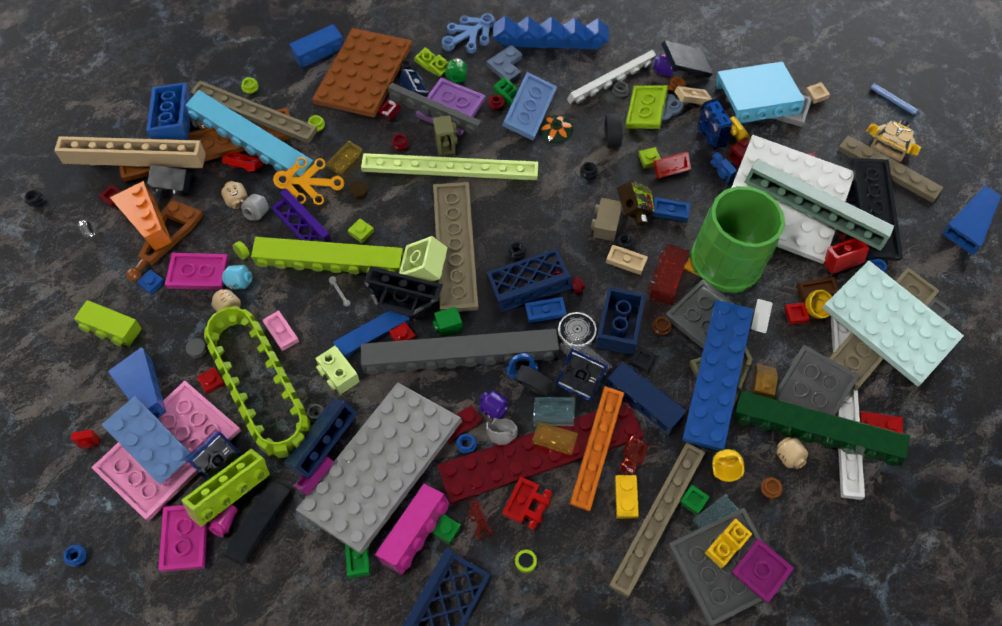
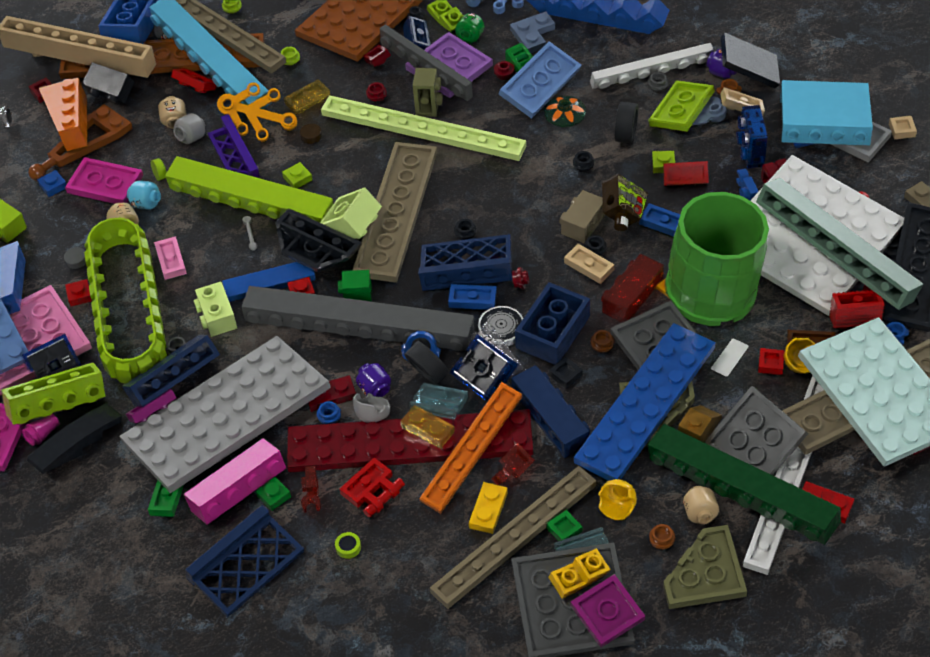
camera: 20 degrees right, 10 degrees down
(738, 130) = (778, 145): yellow slope -> none
(817, 509) = (706, 571): none -> olive plate

